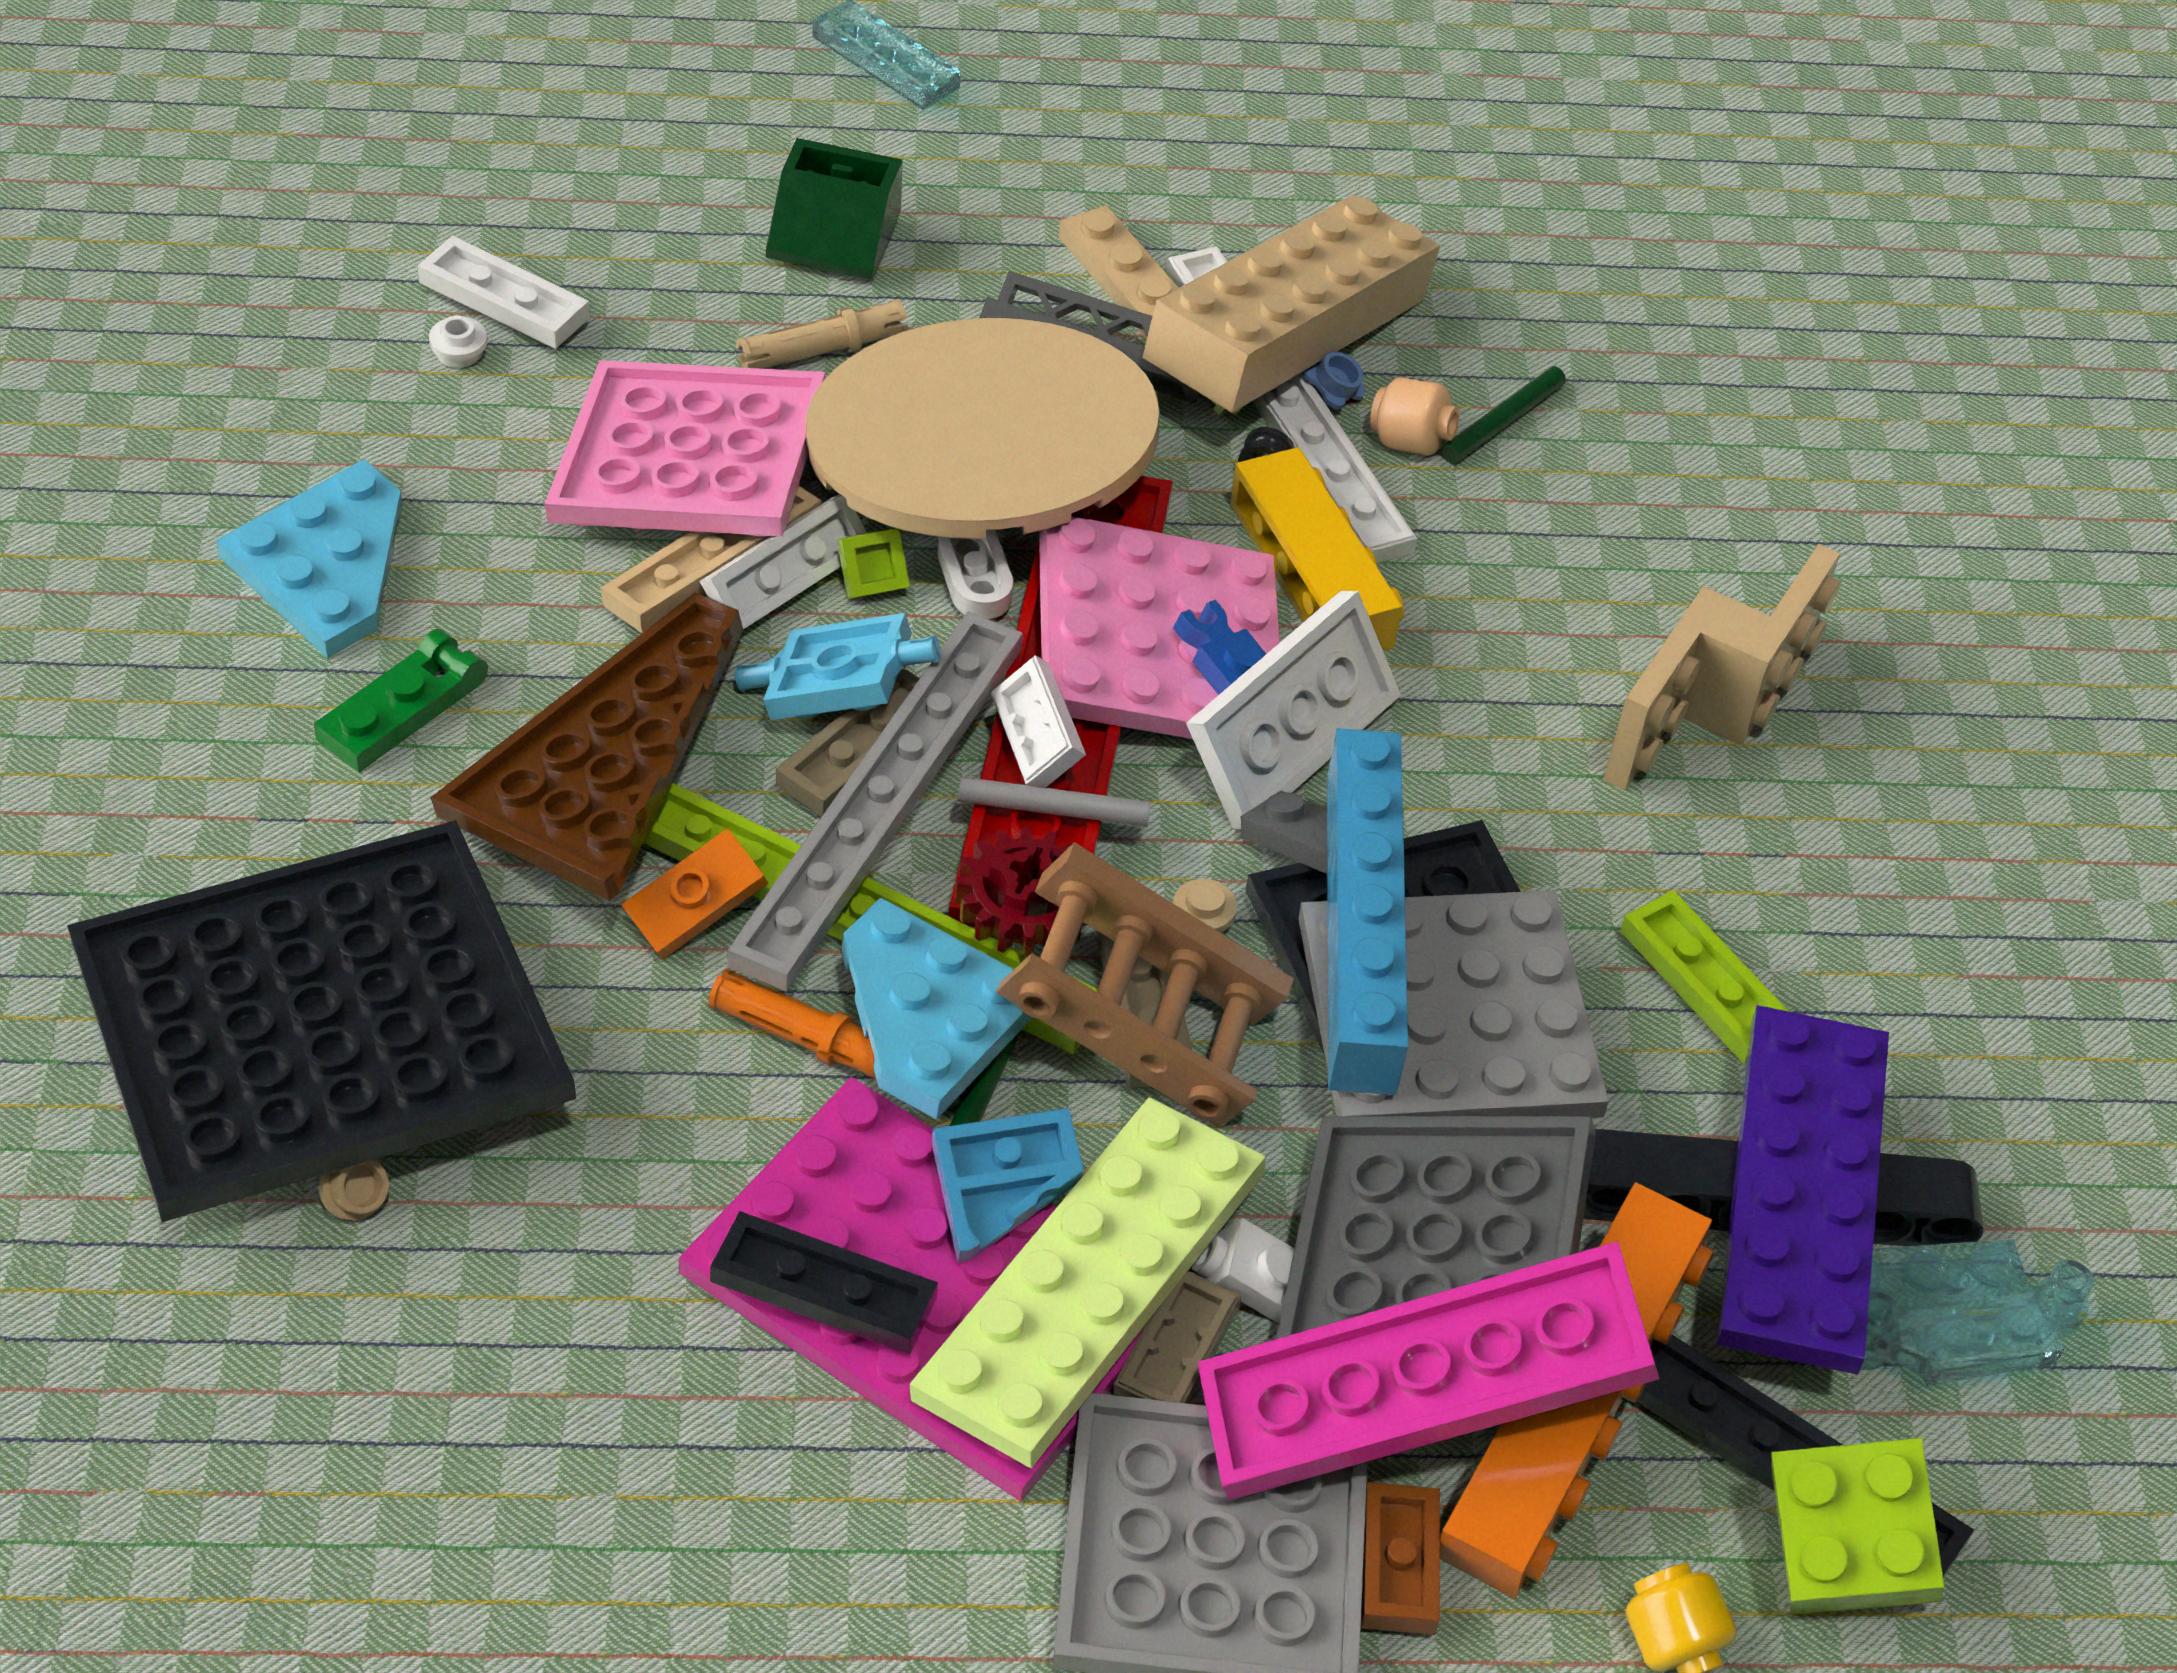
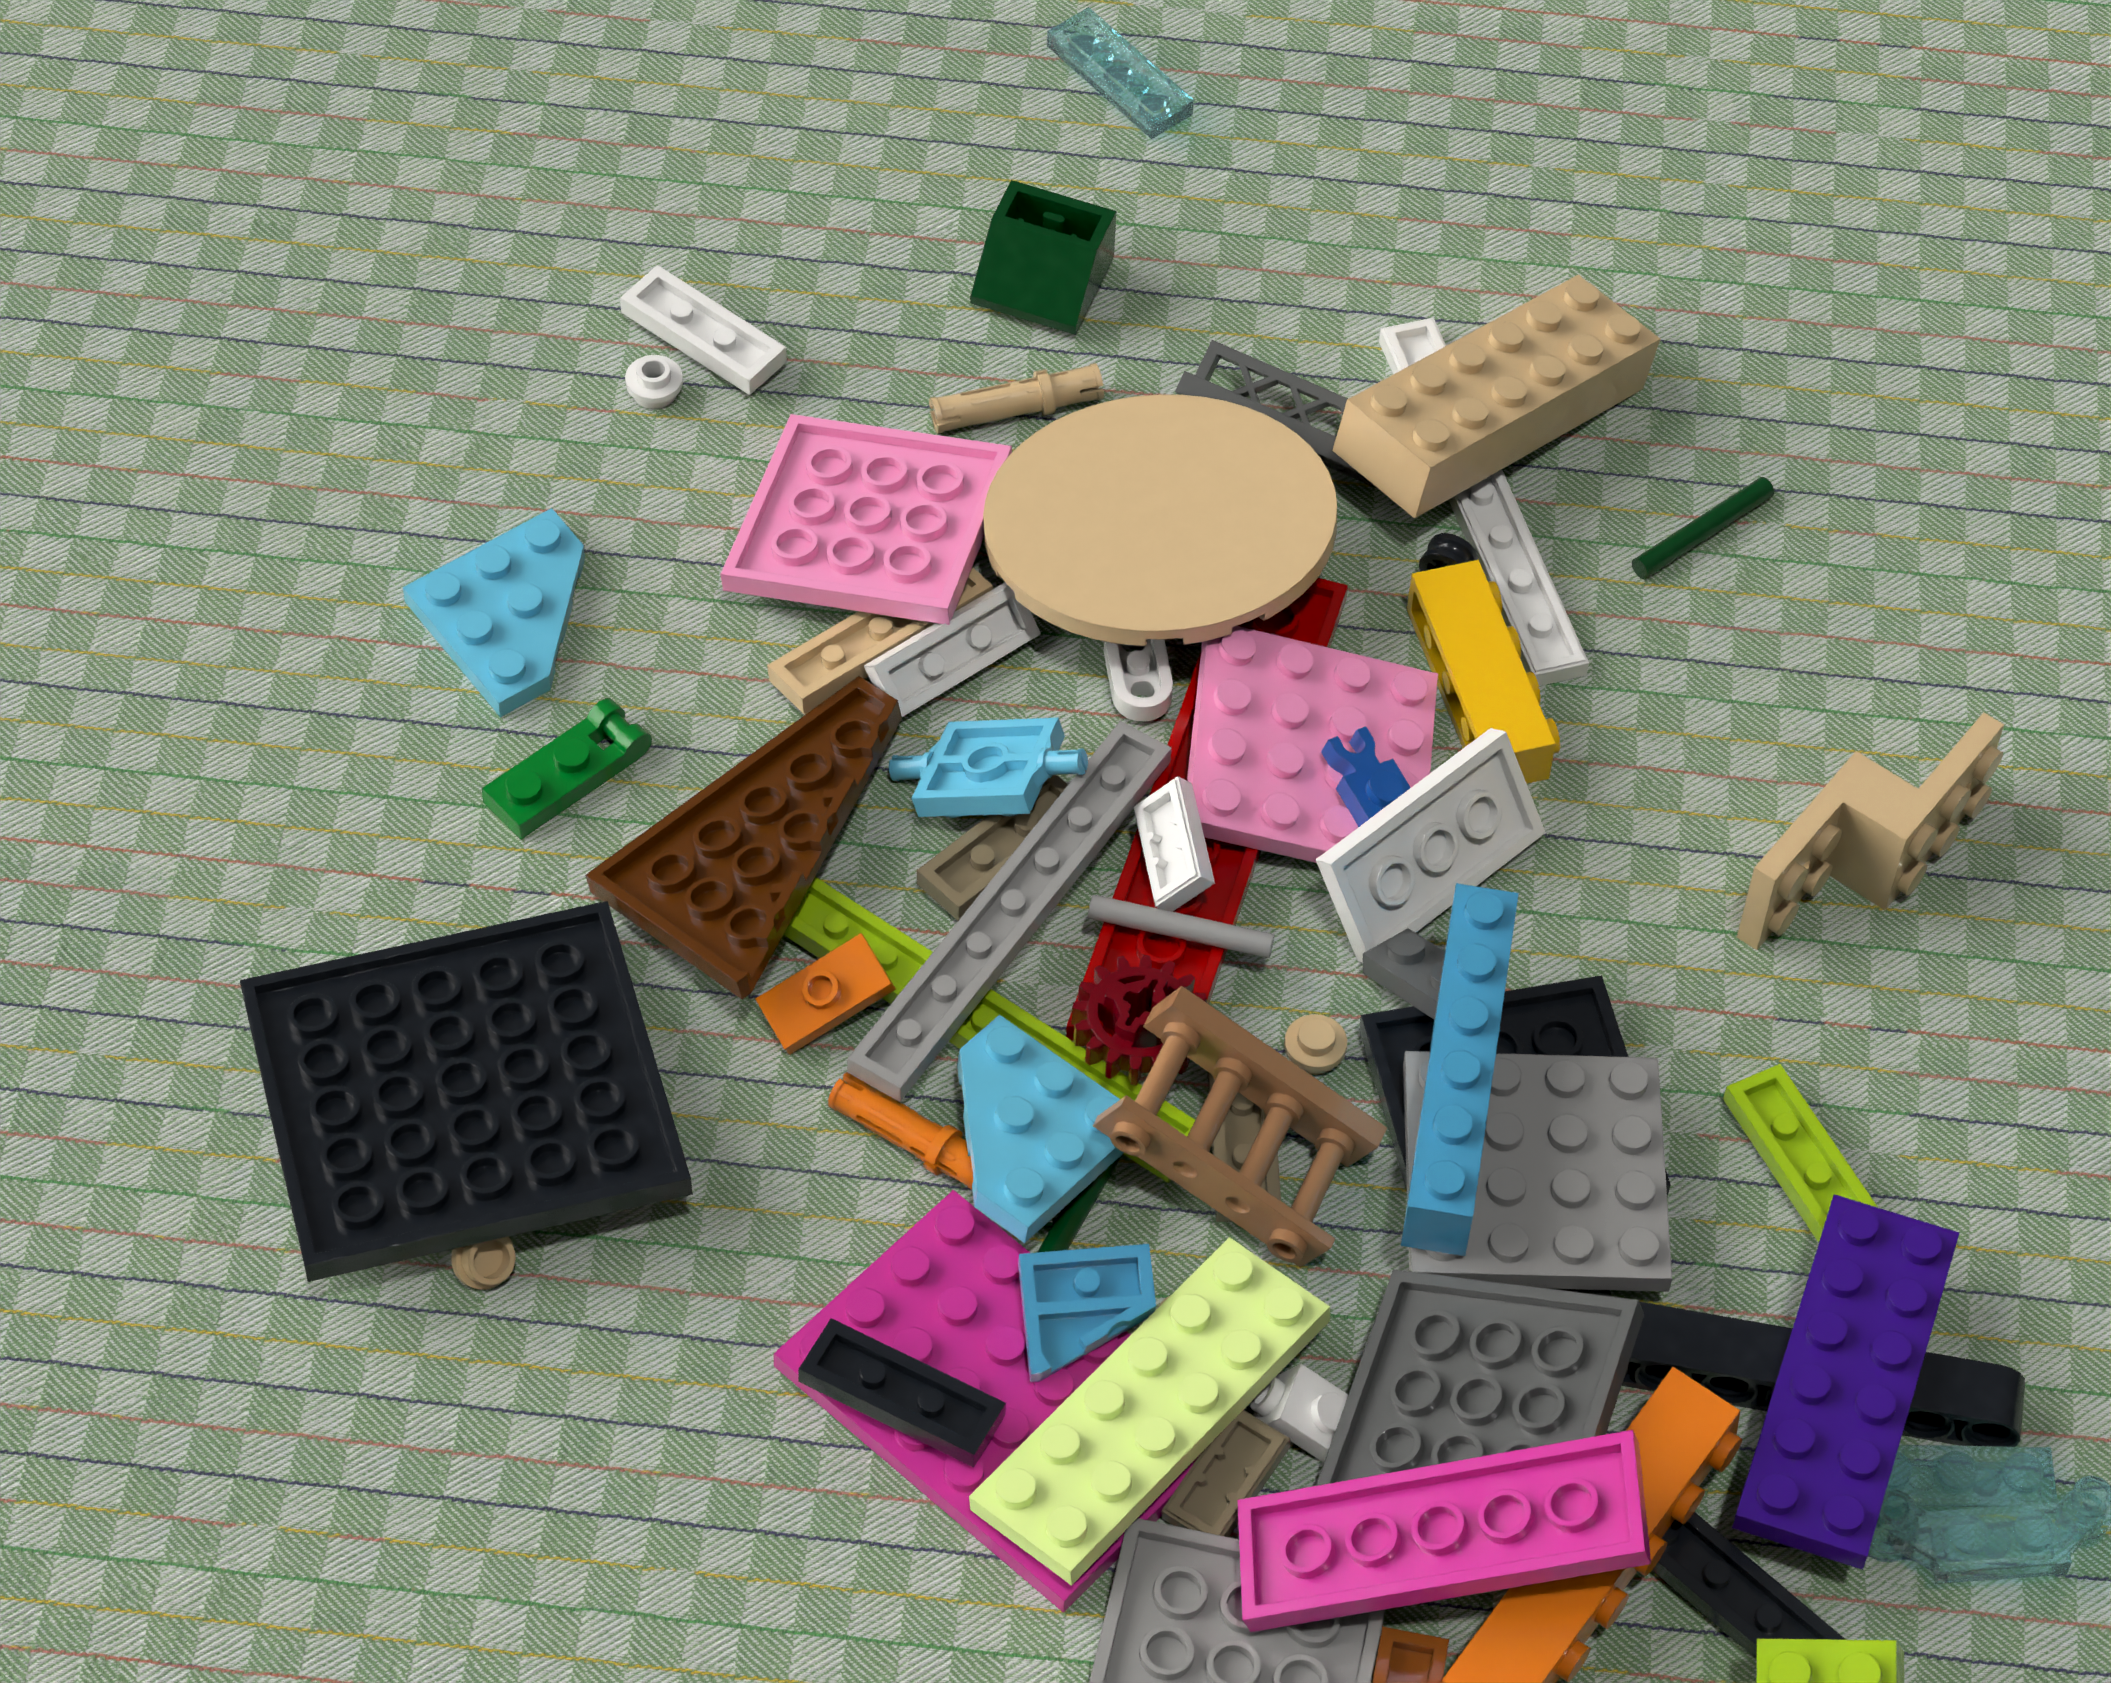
camera: 10 degrees right, 5 degrees up
(873, 563) = (1036, 656): lime plate -> none
(1116, 260) = (1331, 331): tan plate -> none
(1336, 379) = (1534, 479): medium blue plate -> none
(1414, 416) = (1606, 526): light nougat head -> none

